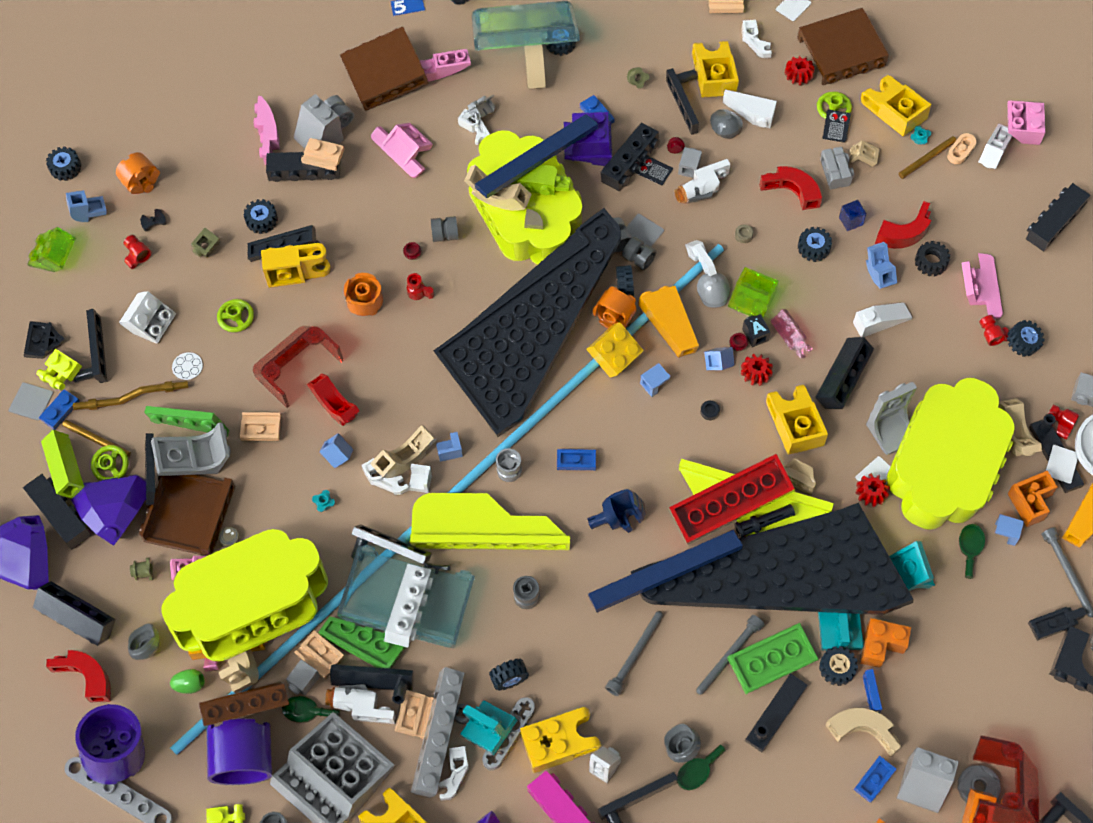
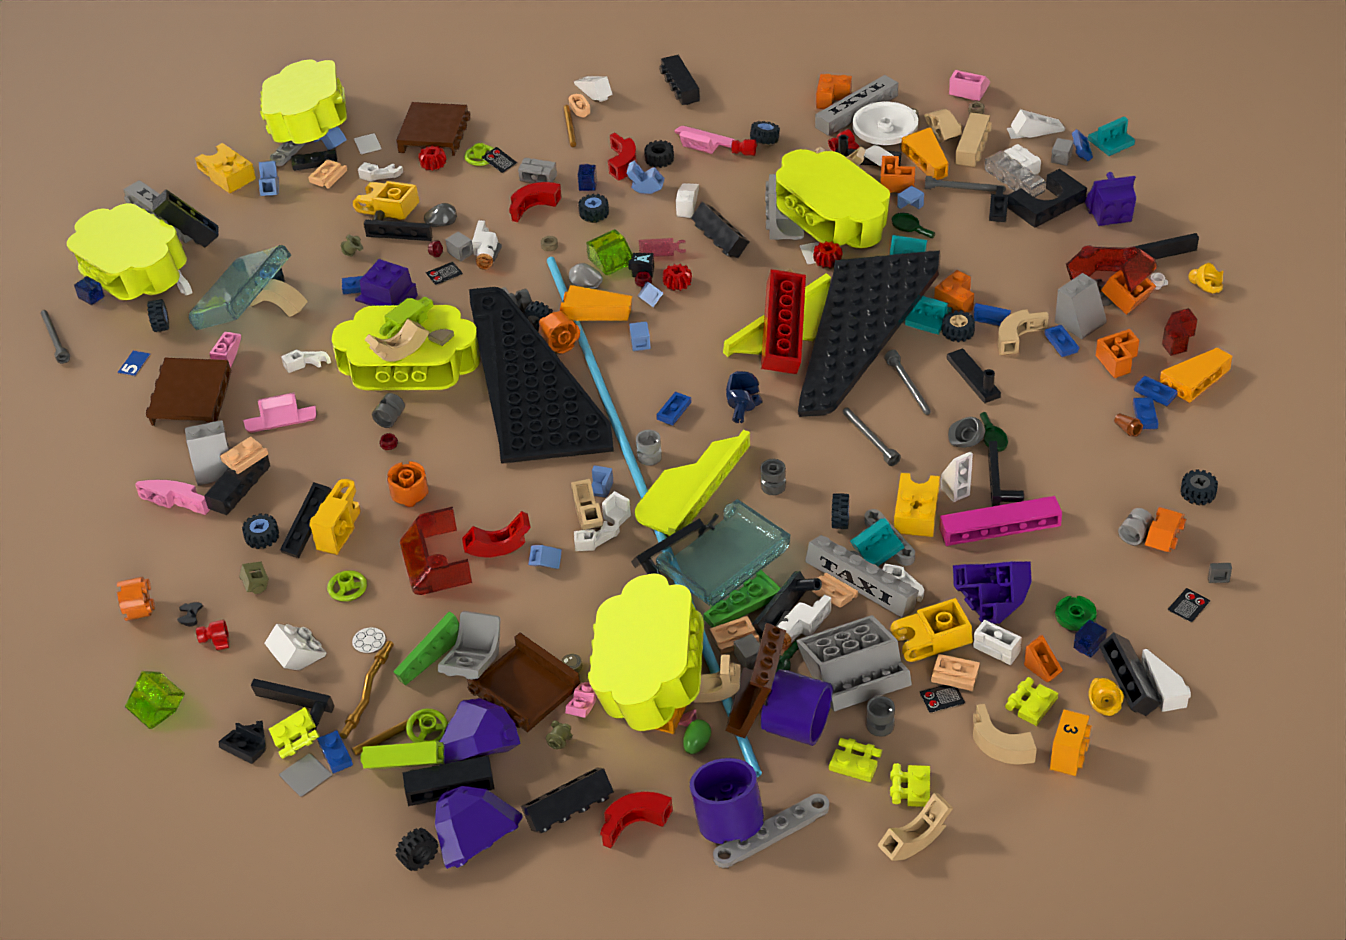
camera: 60 degrees left, 20 degrees down
(60, 169) = (63, 659): black wheel -> none
(83, 208) = (130, 653): medium blue brick -> none
(143, 642) = (634, 756): dark grey hat -> none
(149, 470) = (462, 687): black piece -> none
(260, 426) = (479, 599): light nougat plate -> none
(323, 506) = (586, 584): teal plate -> none
(407, 605) = (736, 546): white brick -> none
(416, 289) = (430, 448): red piece -> none
(480, 107) = (288, 344): light grey hinge -> none
(536, 156) = (388, 304): dark blue tile -> none
(614, 349) = (595, 344): yellow brick -> none
(630, 157) = (423, 275): black brick -> none
(665, 571) = (815, 386): dark blue tile -> none
(697, 251) = (545, 267): white piece -> none
(709, 410) = (690, 318): black tile -> none
(752, 108) = (447, 191): white slope -> none
(755, 523) = (810, 323): black pin -> none
(772, 658) = (928, 358): bright green plate -> none
(797, 421) = (738, 269): yellow brick -> none
(864, 152) = (538, 152): tan bracket -> none
(897, 105) = (512, 119): yellow brick -> none
(917, 138) = (548, 121): teal plate -> none
(1026, 121) = (589, 62): bright pink slope -> none

